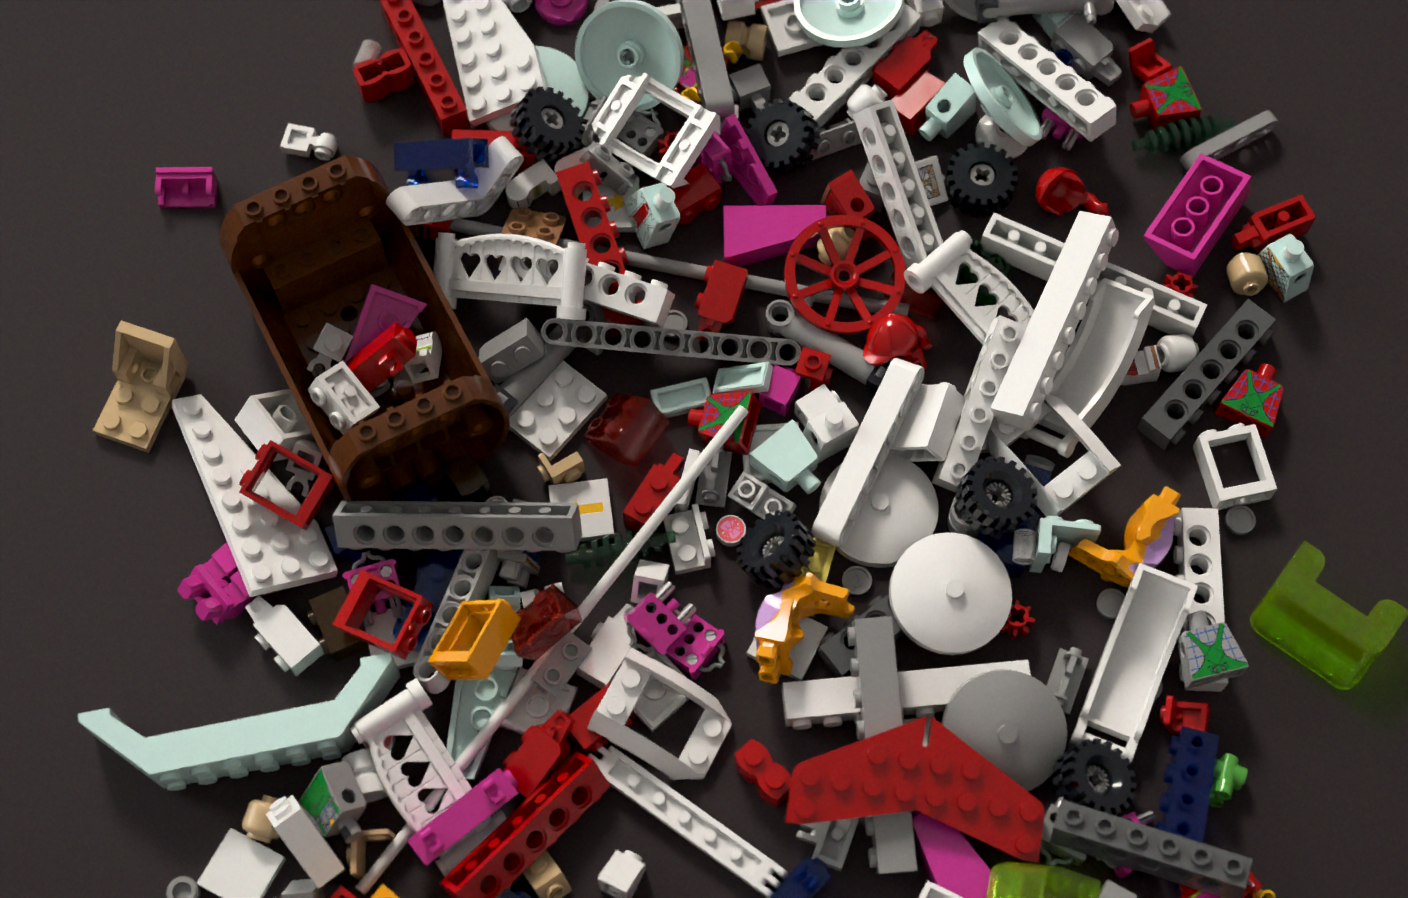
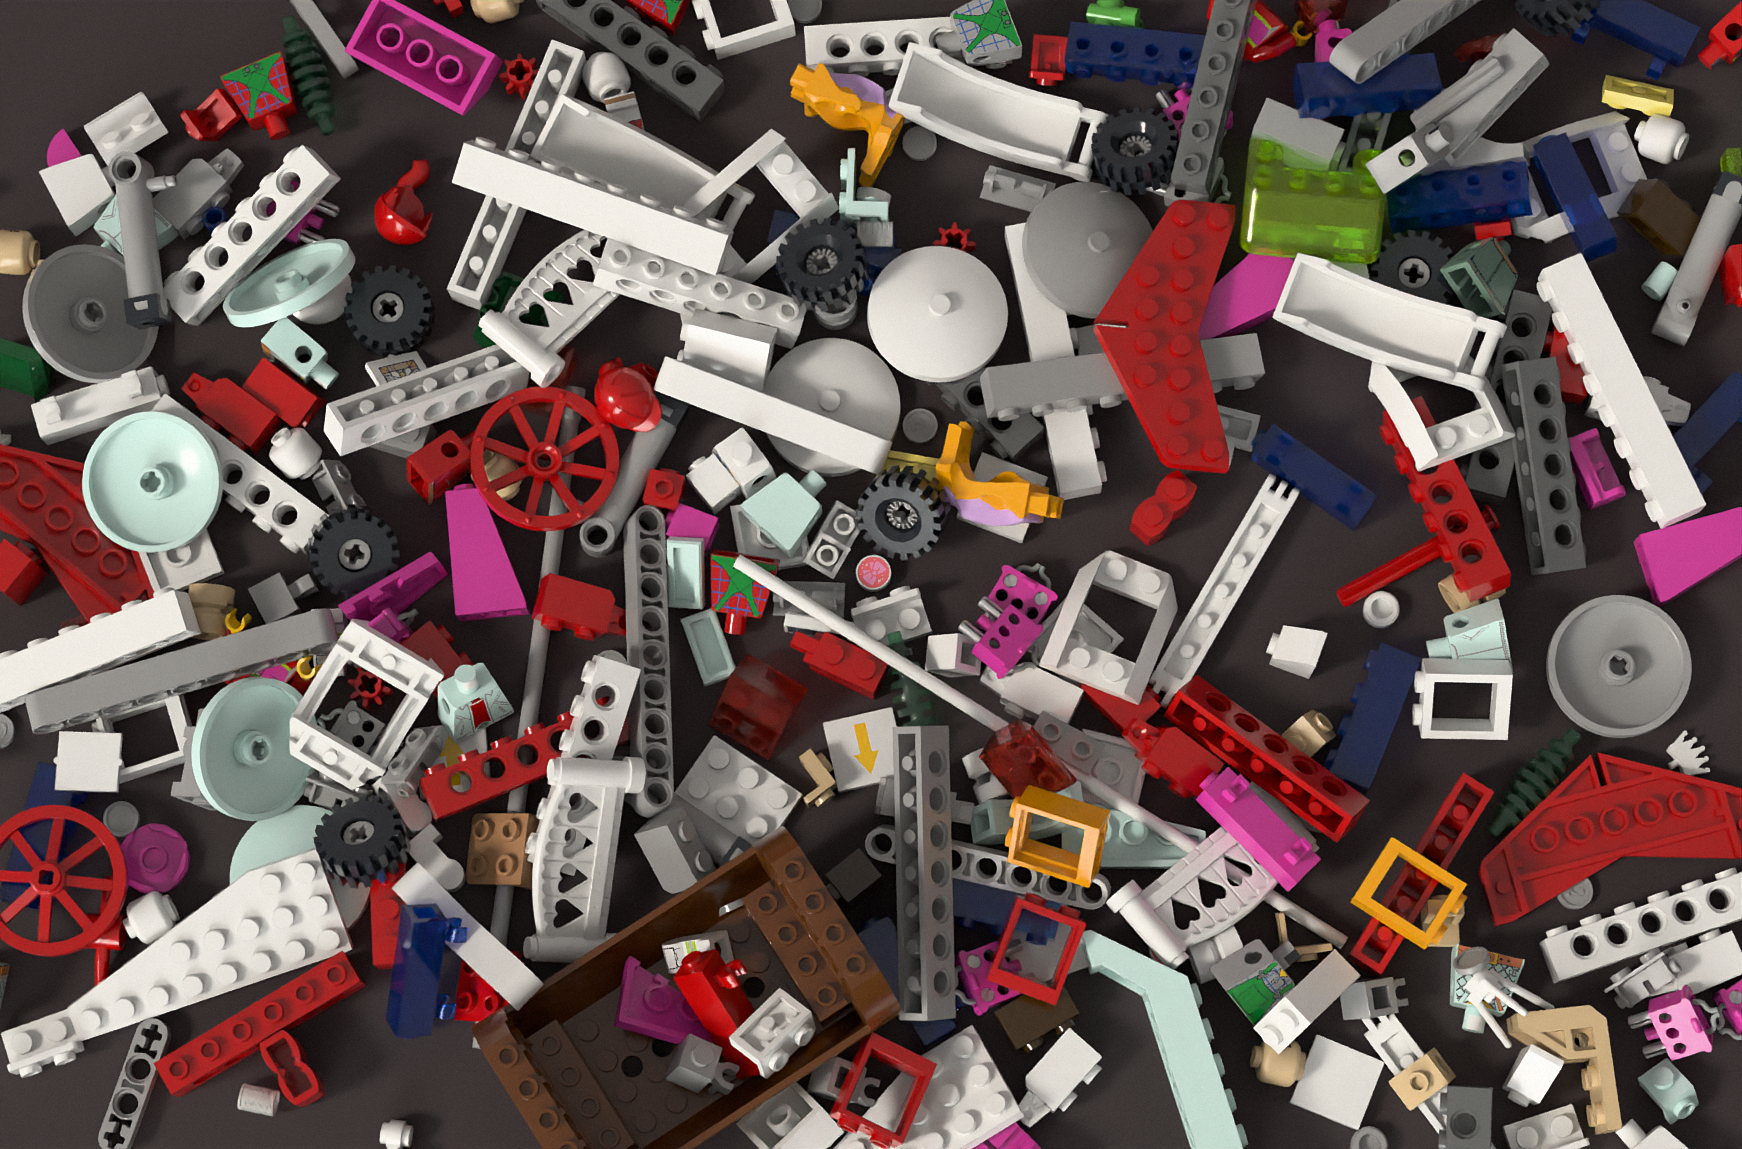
camera: 90 degrees left, 10 degrees up
(1039, 462) = (759, 227): light grey piece -> none

